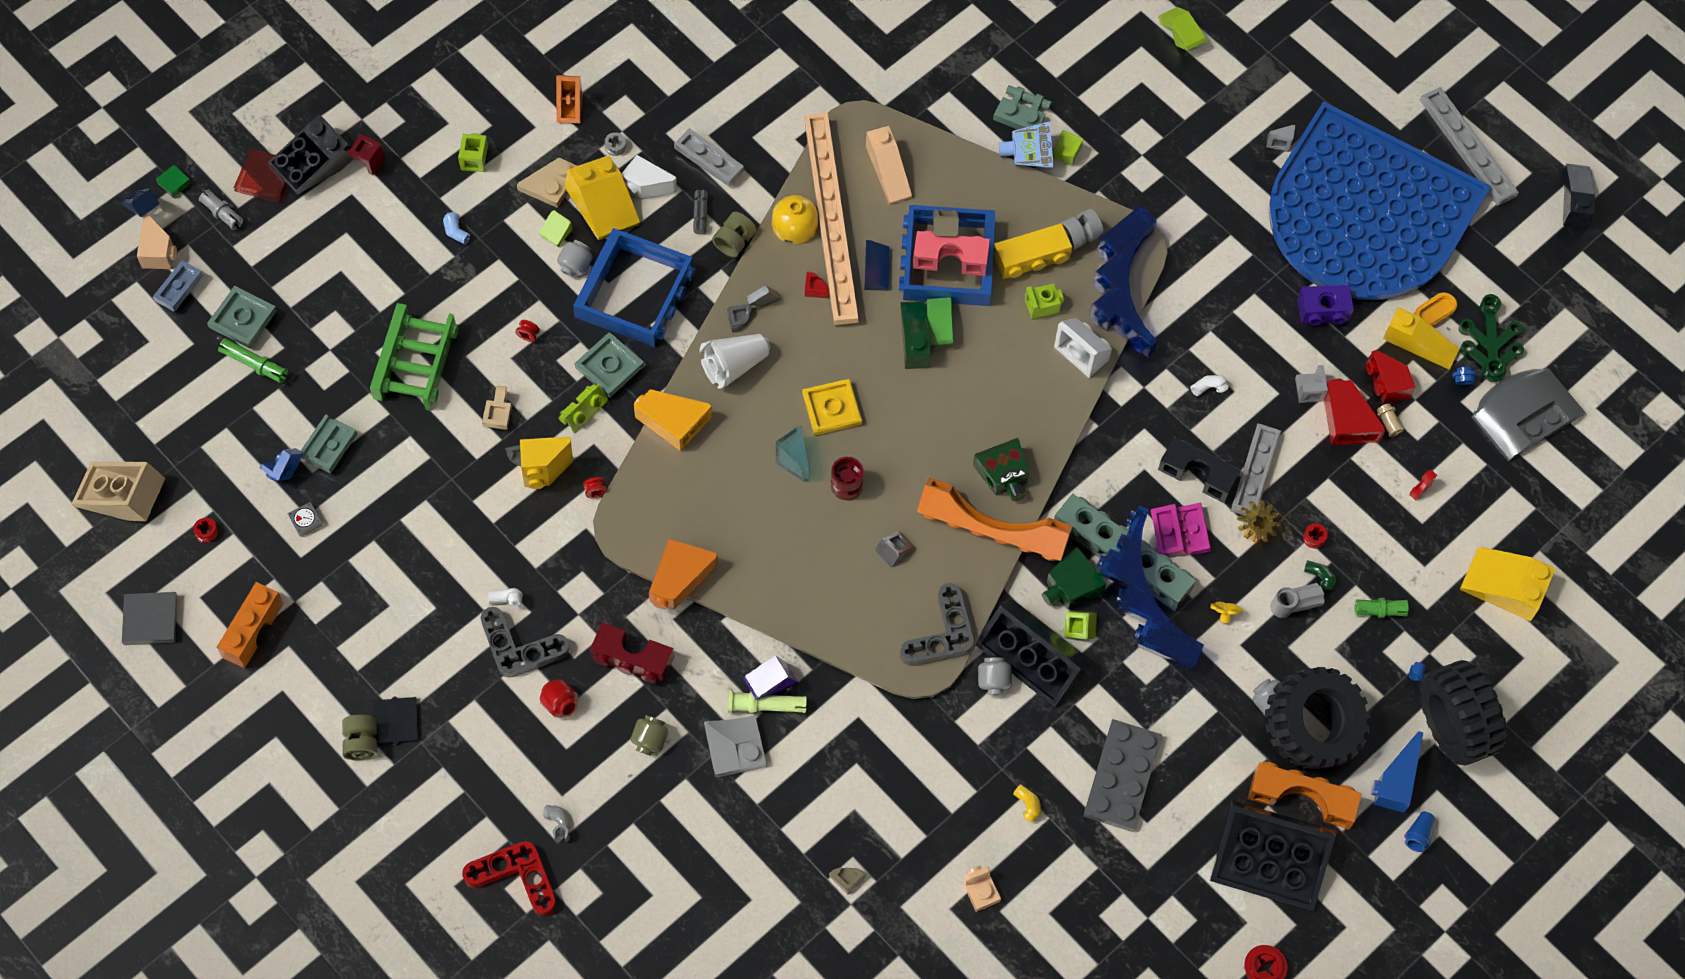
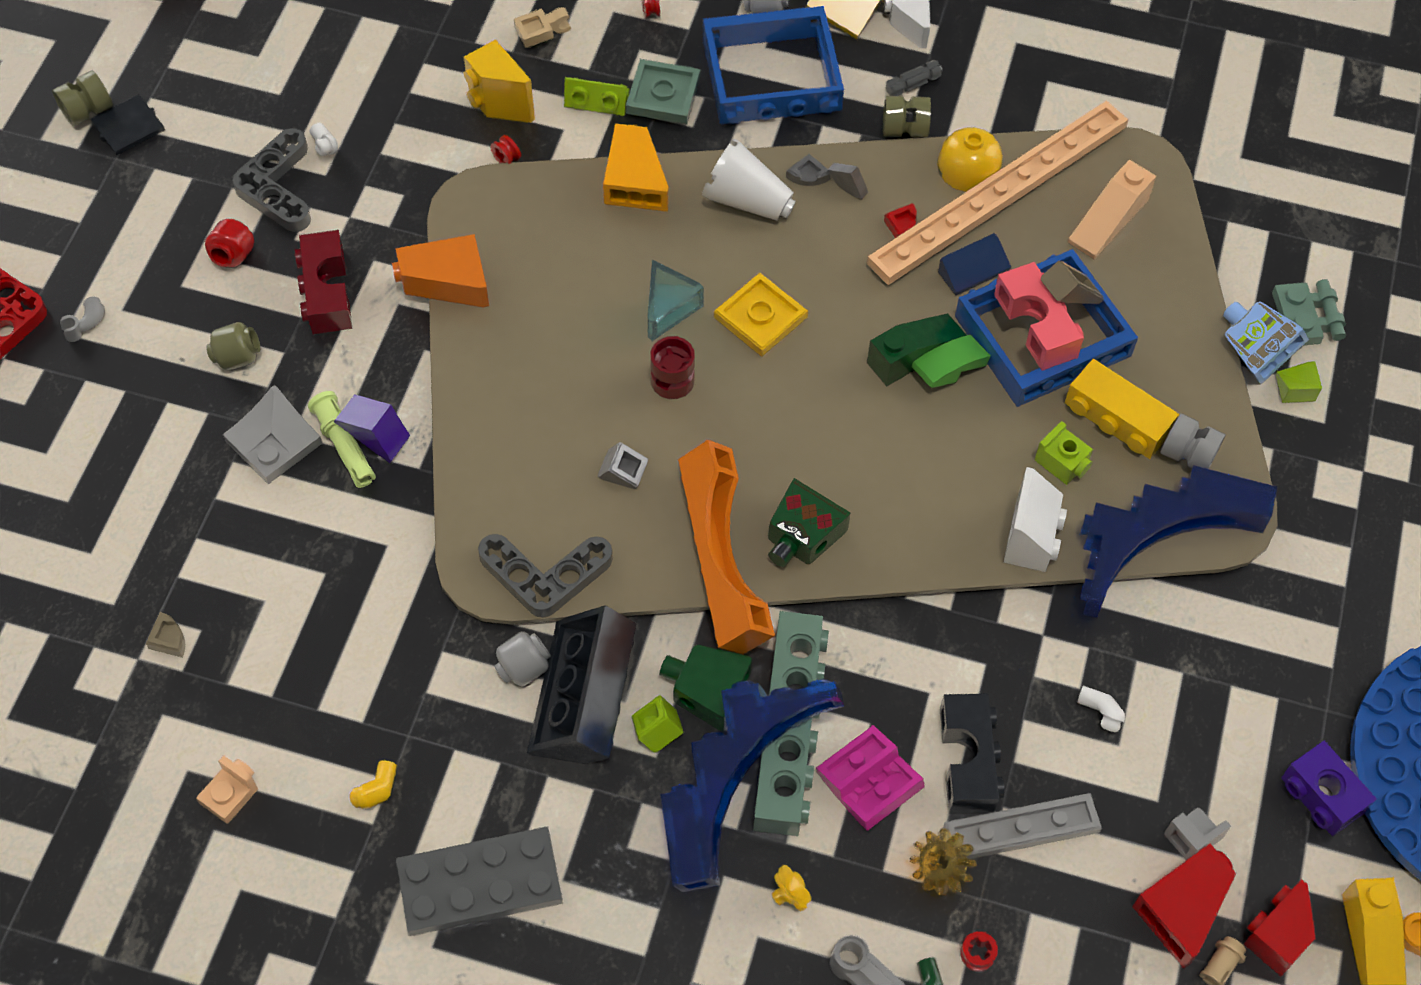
camera: 60 degrees right, 5 degrees down
(709, 157) = (985, 51): light grey plate -> none

